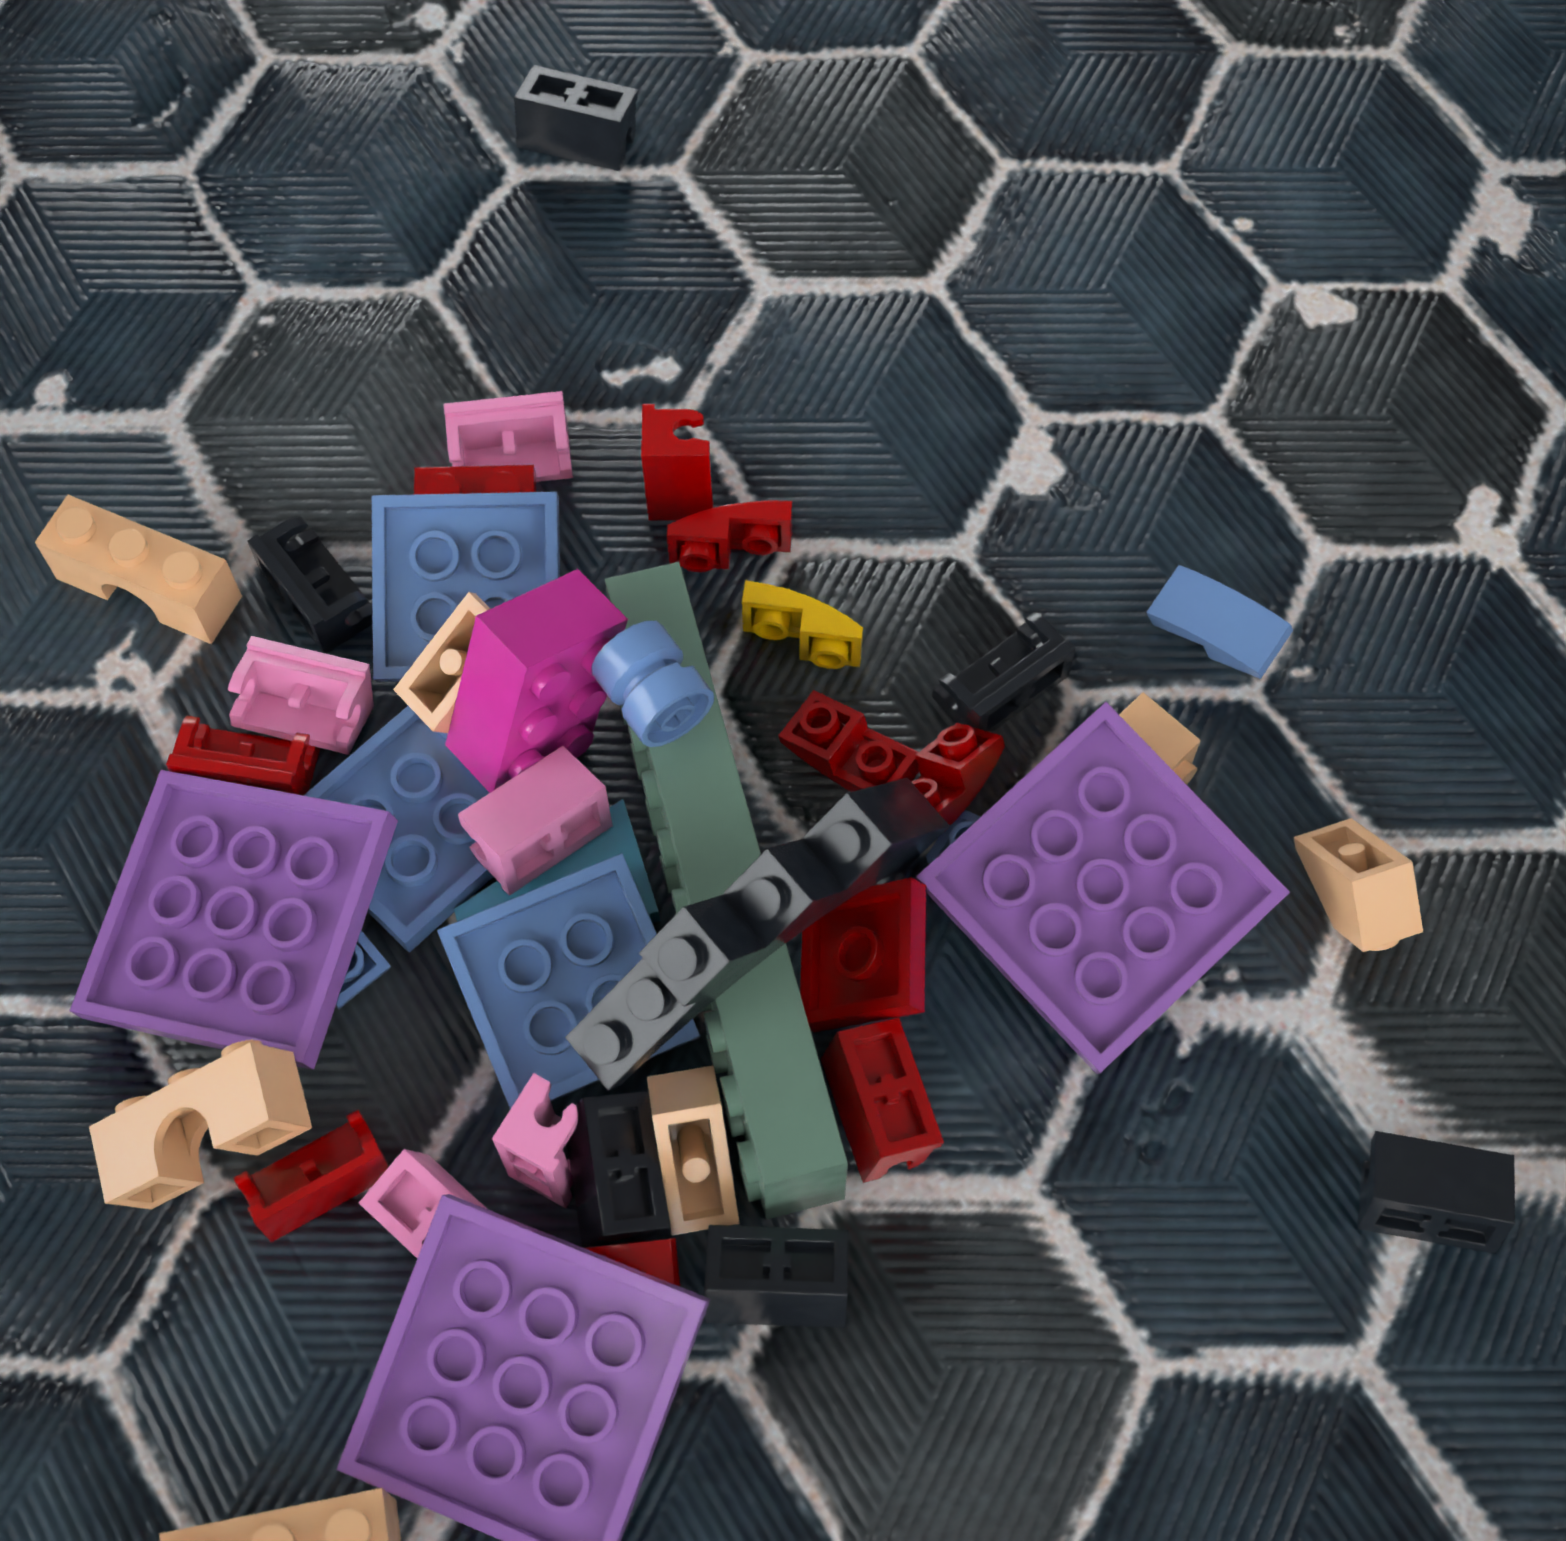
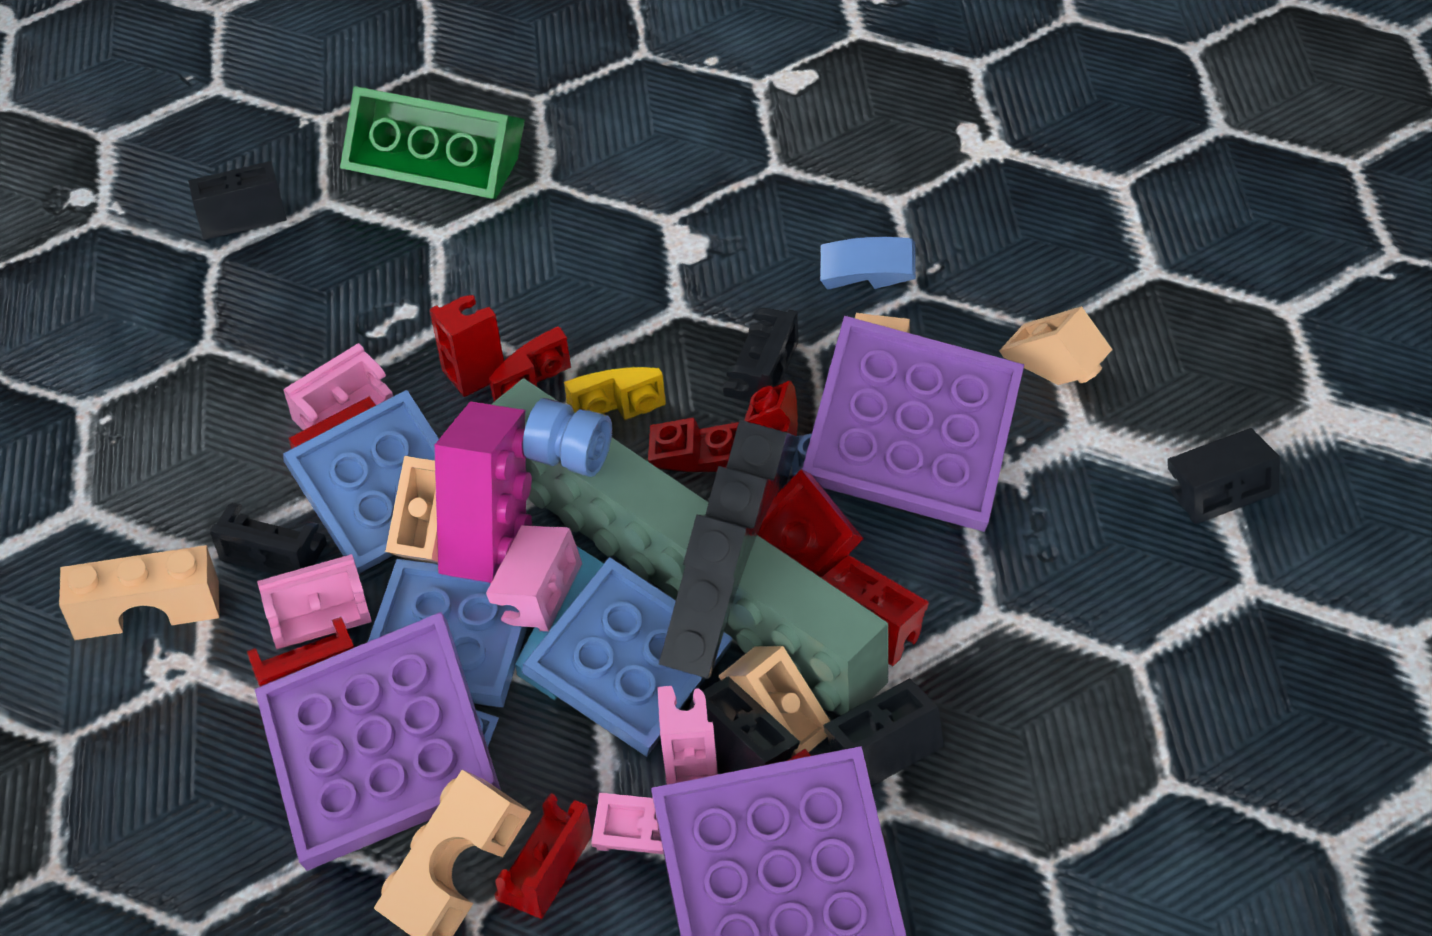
camera: 30 degrees left, 15 degrees down
(836, 160) = (430, 142): none -> green slope

